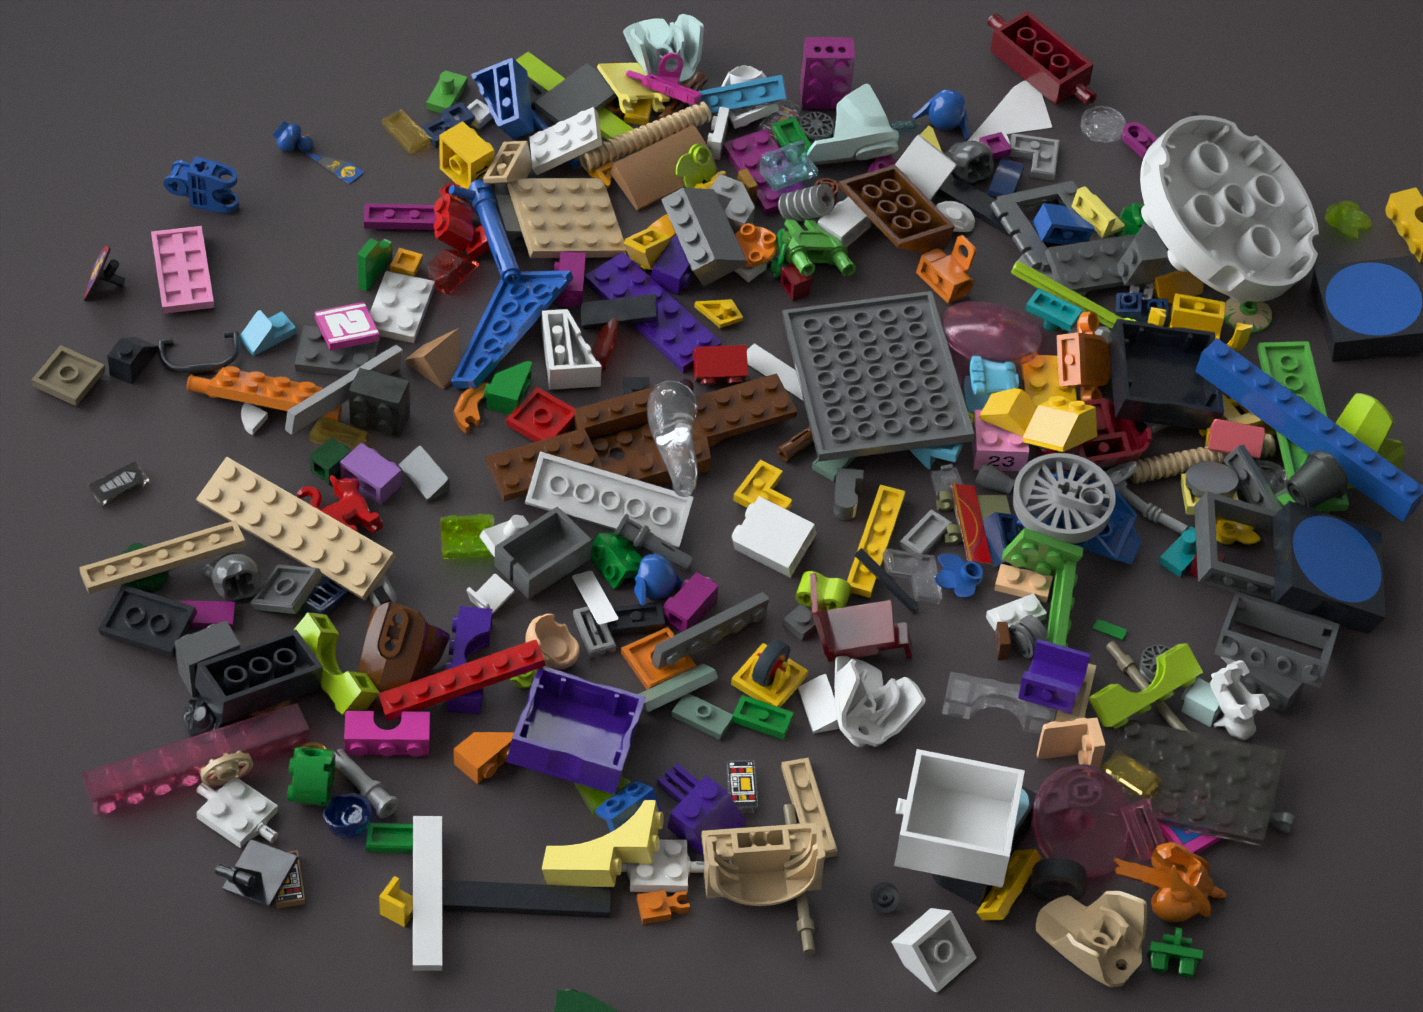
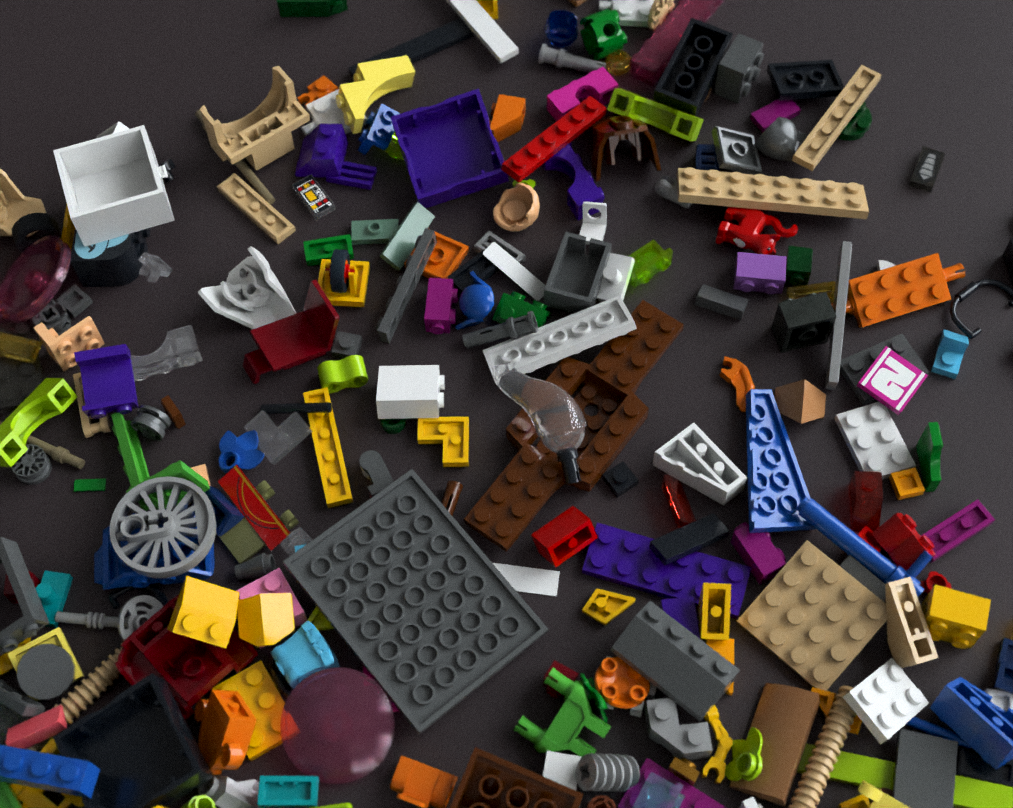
camera: 155 degrees right, 10 degrees up
(389, 838) = (528, 43): green tile -> none
(508, 388) = (718, 407): green slope -> none
(541, 416) = (673, 400): red plate -> none
(819, 704) = (292, 284): white slope -> none
(925, 533) = (290, 483): light grey tile -> none
(1016, 610) = (175, 447): white plate -> none

